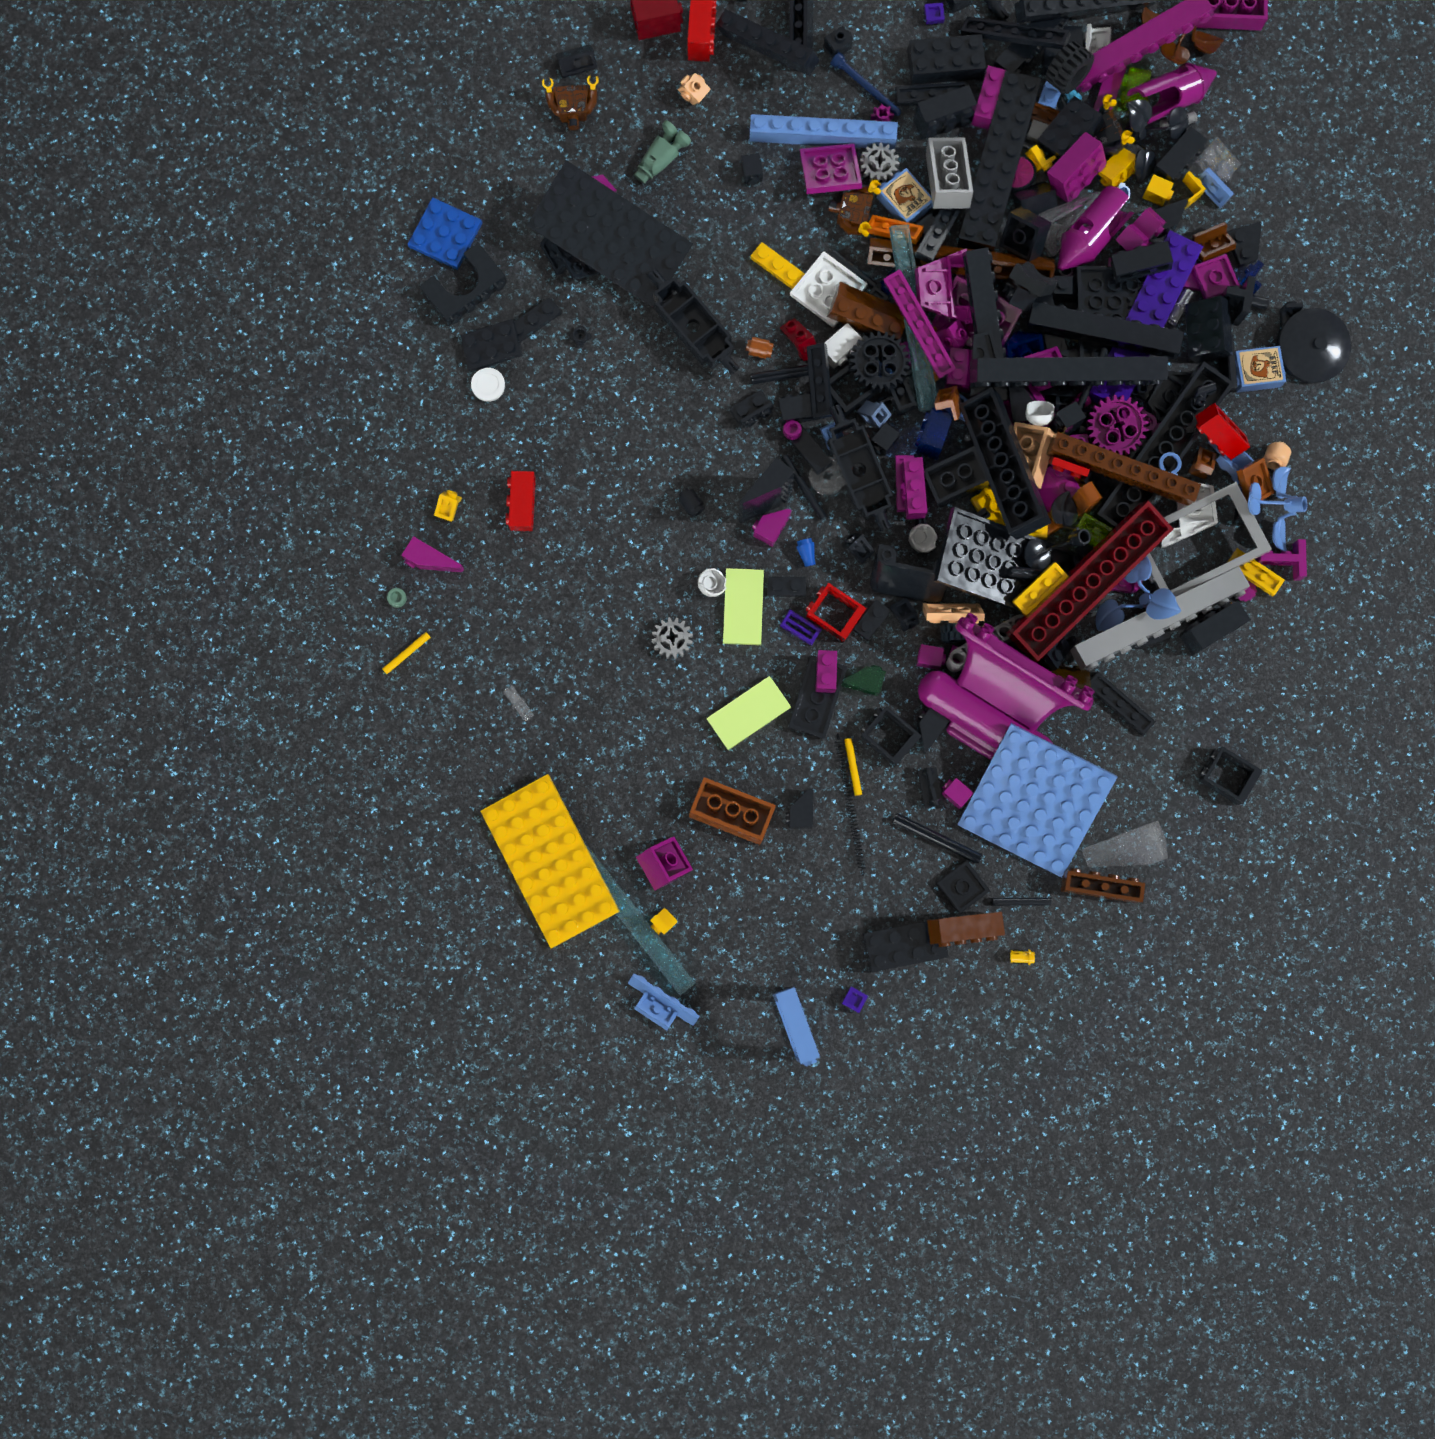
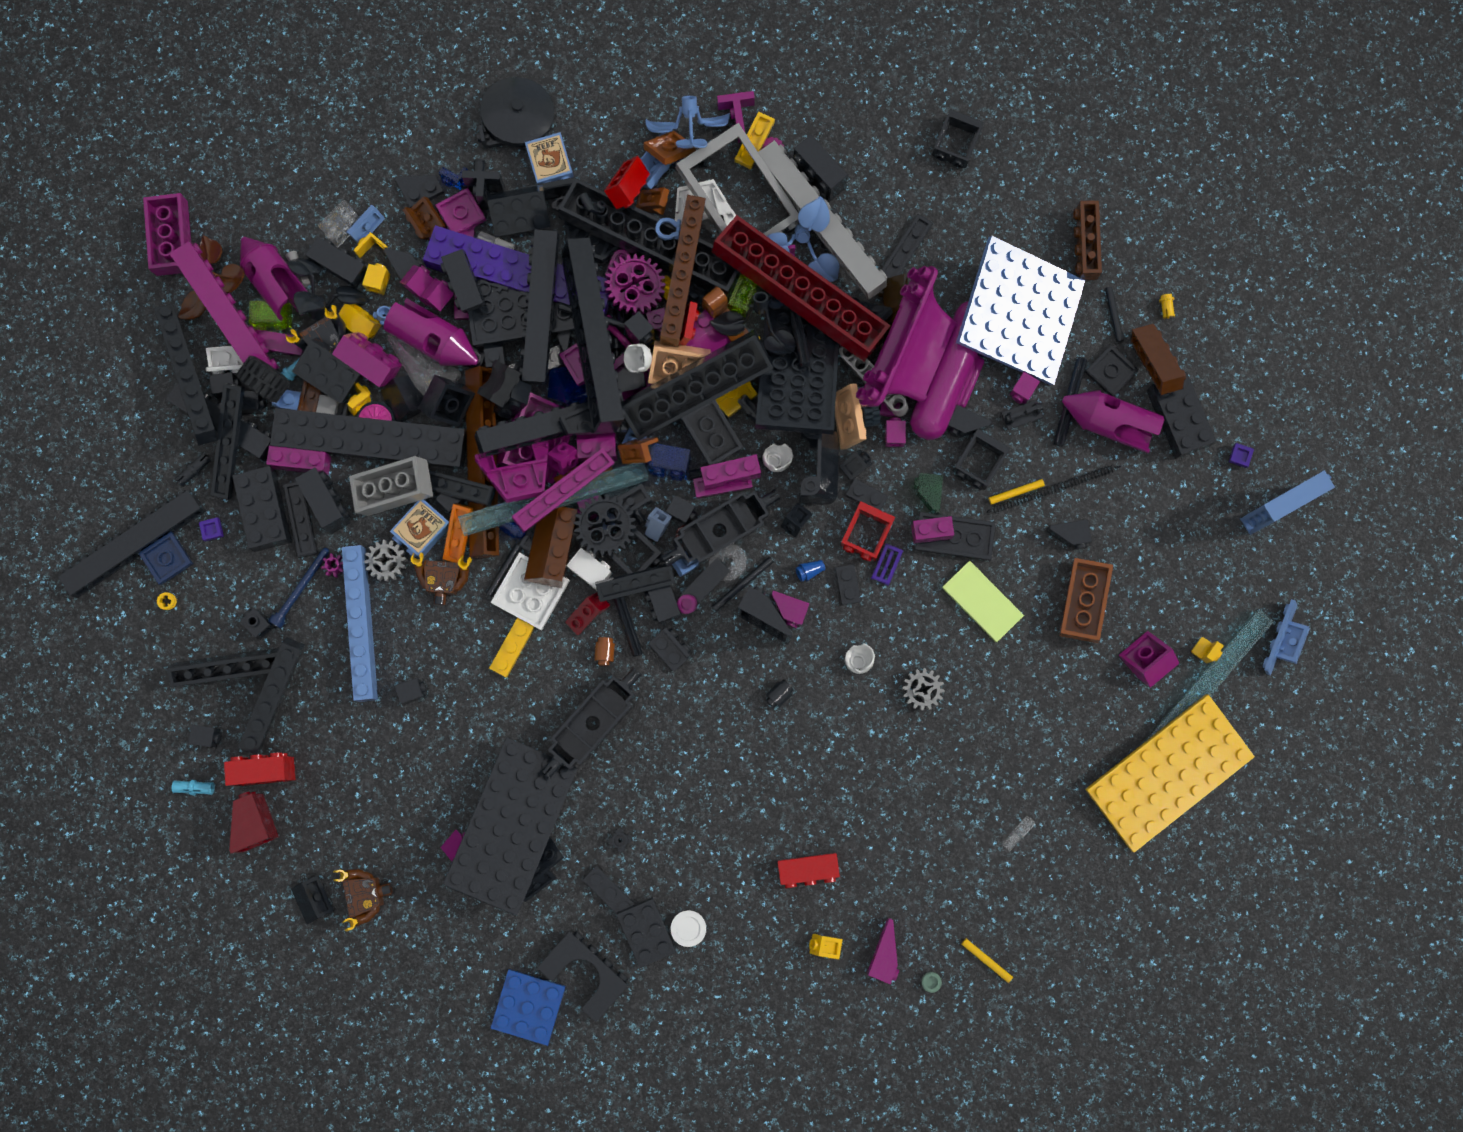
camera: 95 degrees left, 0 degrees up
(661, 152) = (406, 790): sand green piece -> none
(693, 88) = (330, 767): light nougat brick -> none
(743, 606) = (876, 624): yellowish green tile -> none
(830, 168) = (400, 609): magenta plate -> none
(910, 874) = (1114, 418): none -> magenta piece
(1040, 588) = (816, 334): yellow plate -> none
(1136, 847) = (1042, 219): clear wedge -> none
(1277, 455) = (635, 133): light nougat head -> none

